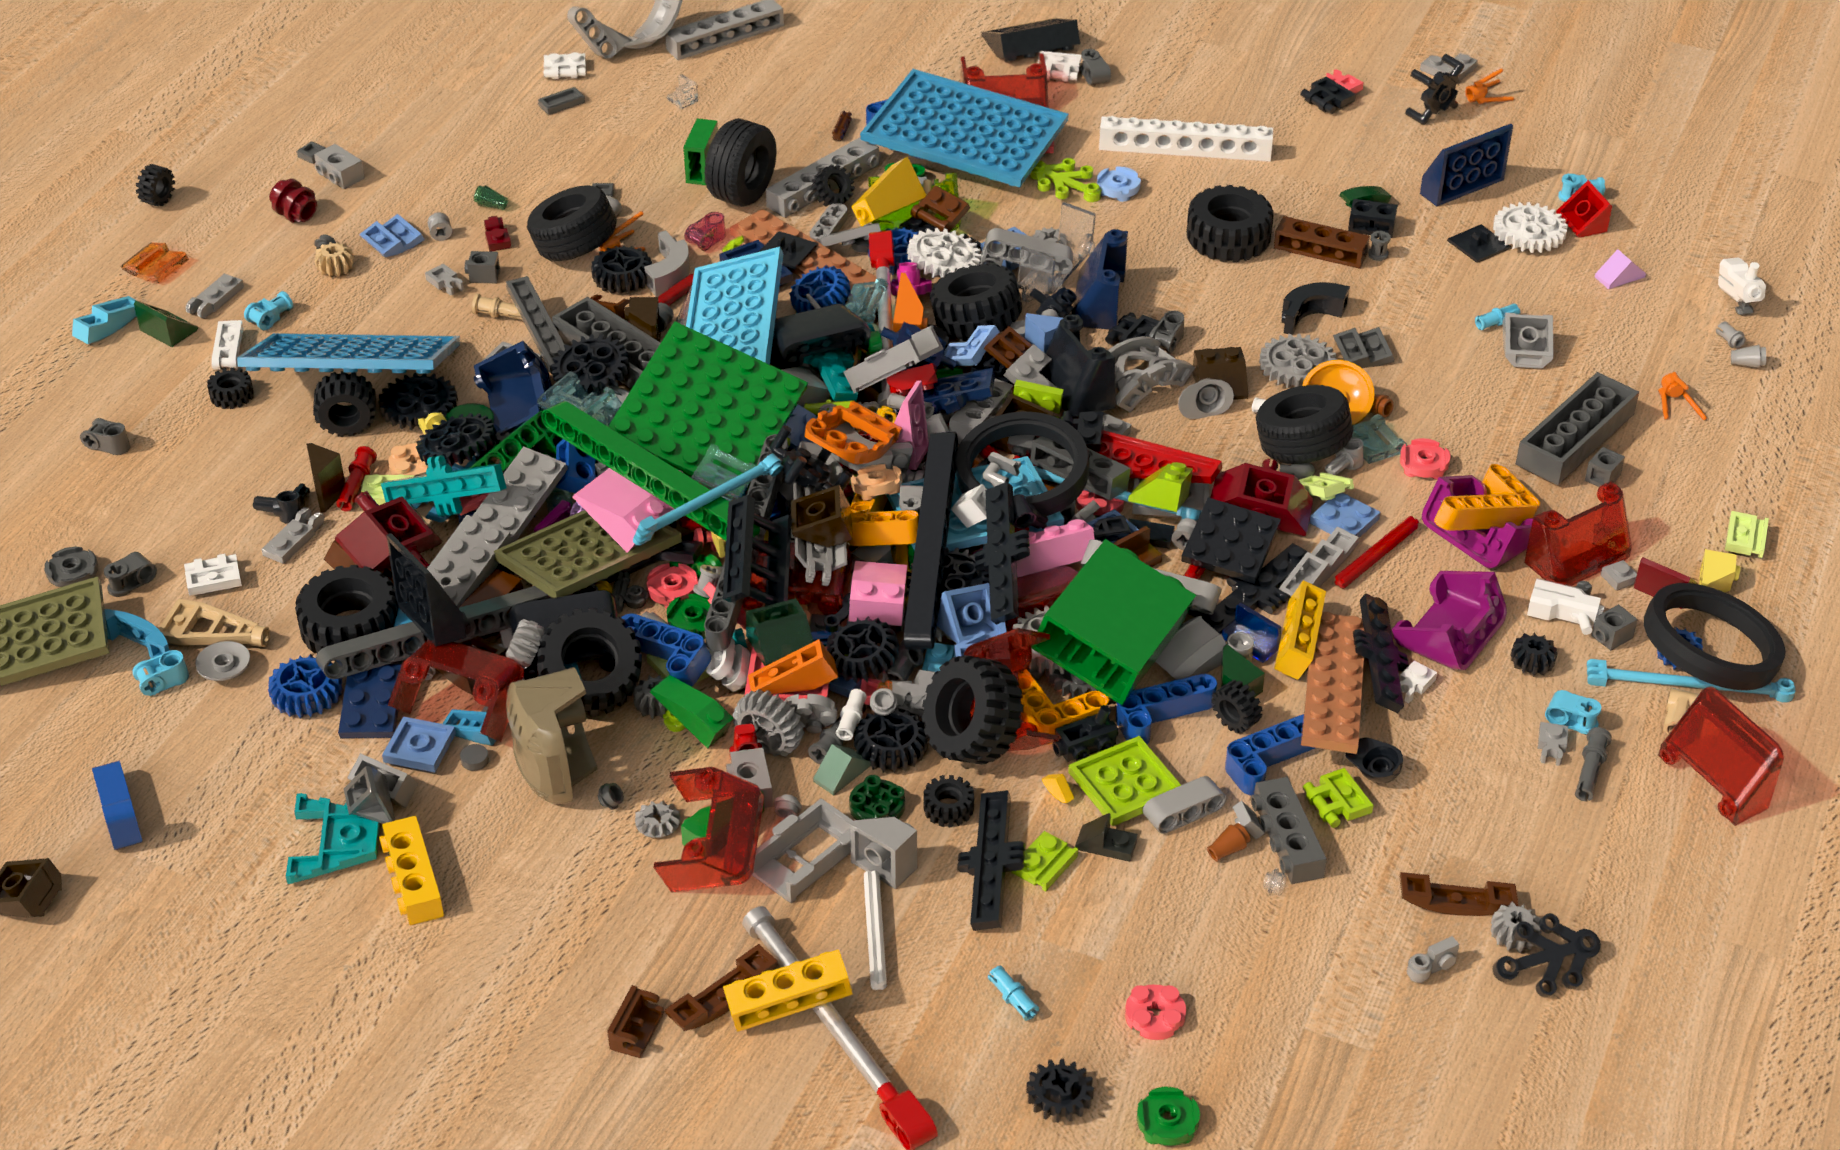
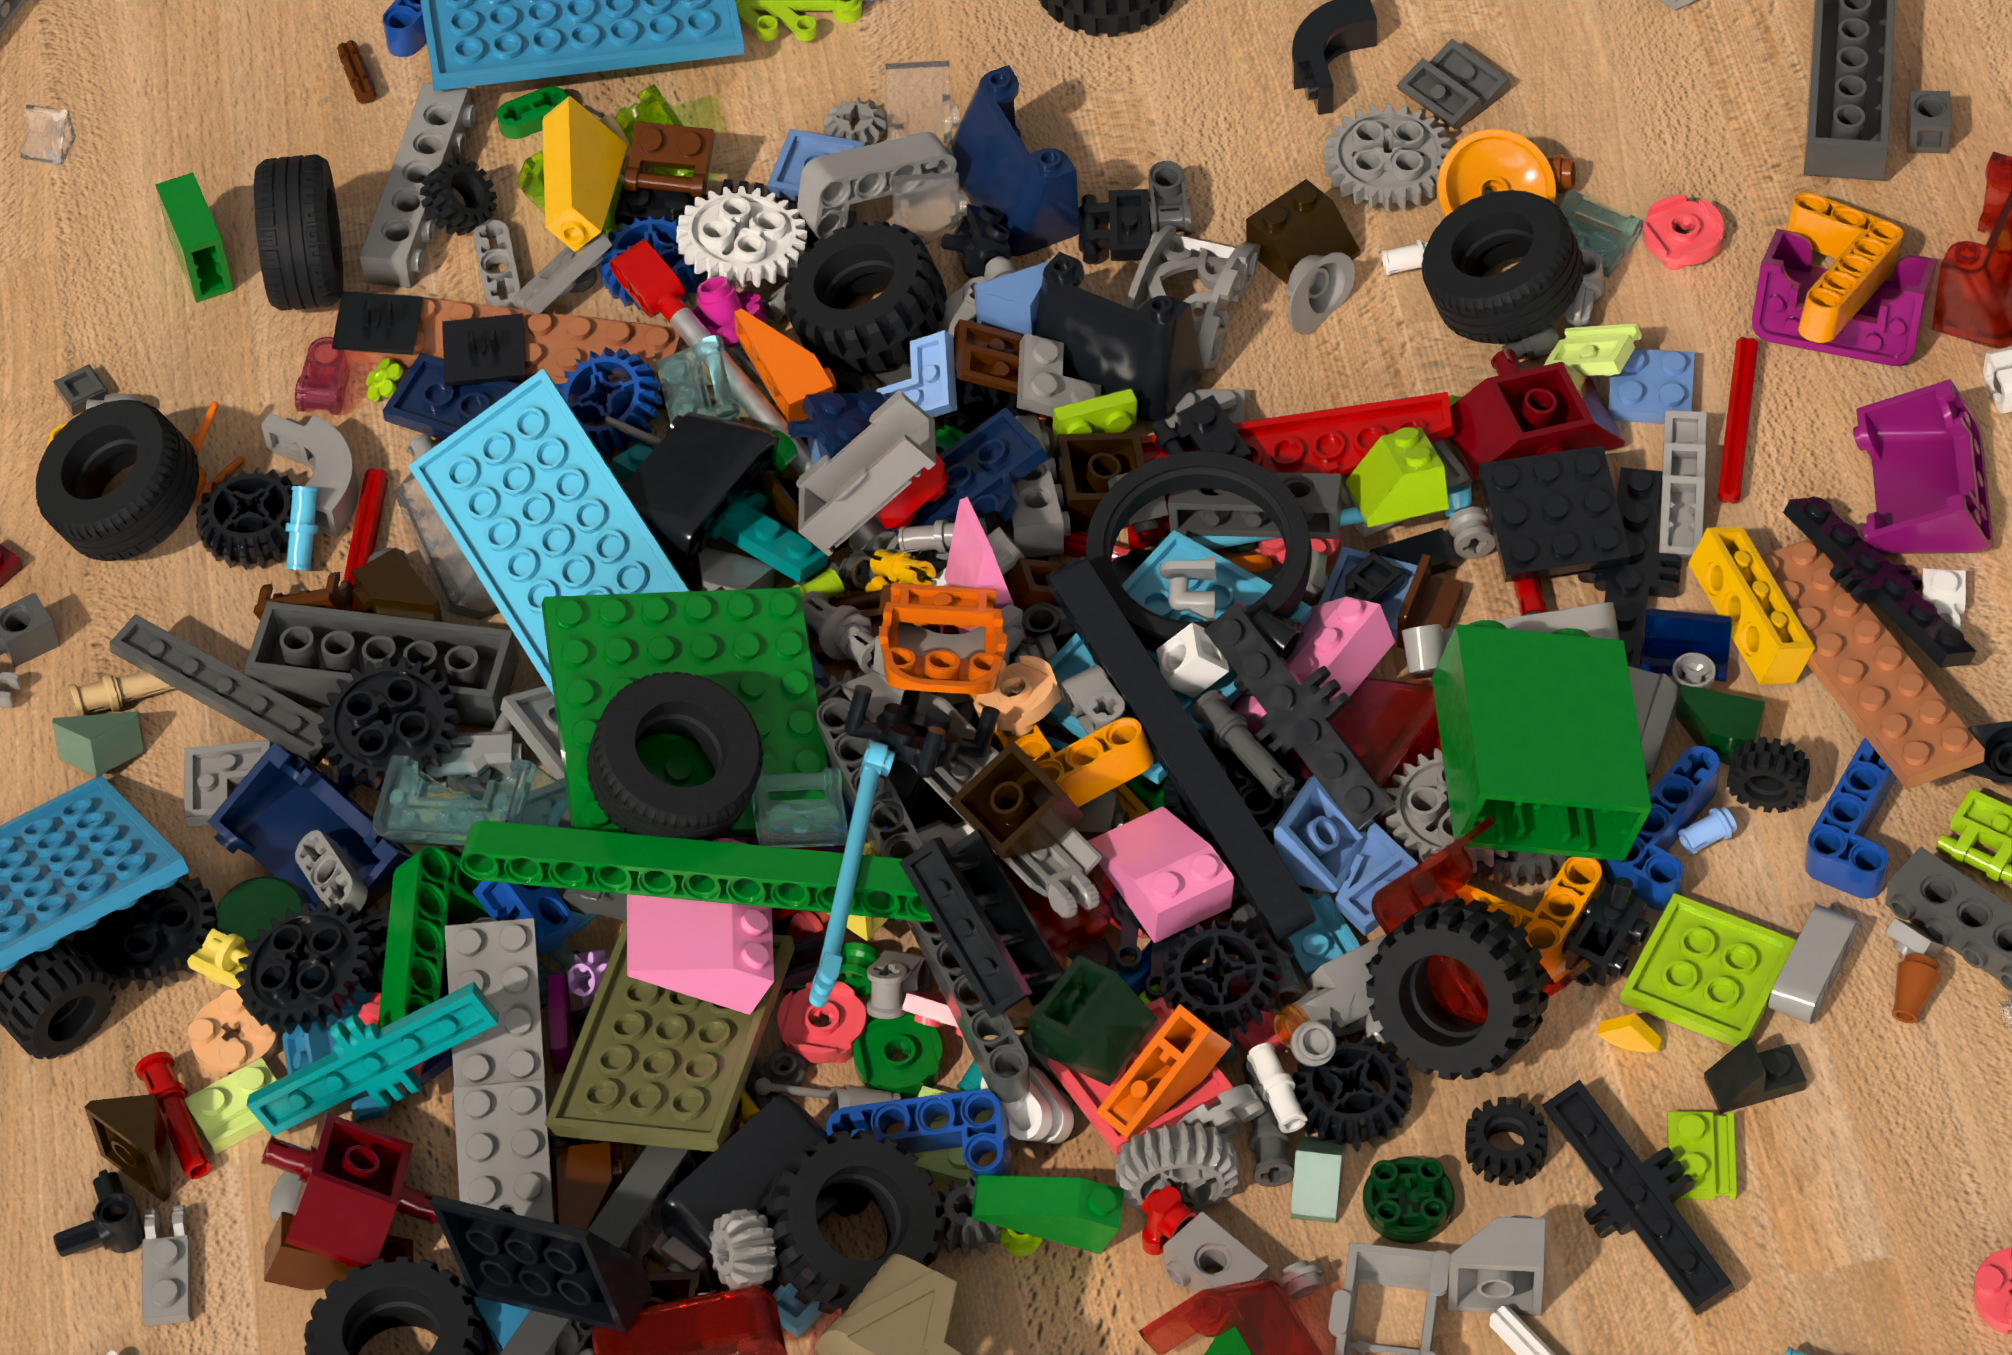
camera: 30 degrees left, 10 degrees up
(472, 322) = (98, 740): none -> sand green slope
(508, 413) = (319, 868): none -> light grey beam
(617, 595) = (764, 1086): none -> light grey hinge
(636, 279) = (301, 528): none -> medium azure pin
(672, 387) = (685, 708): none -> black tyre
(748, 217) = (377, 323): none -> black piece
(967, 546) = (1232, 732): none -> dark grey pin
(1185, 719) = (1707, 830): none -> light blue pin

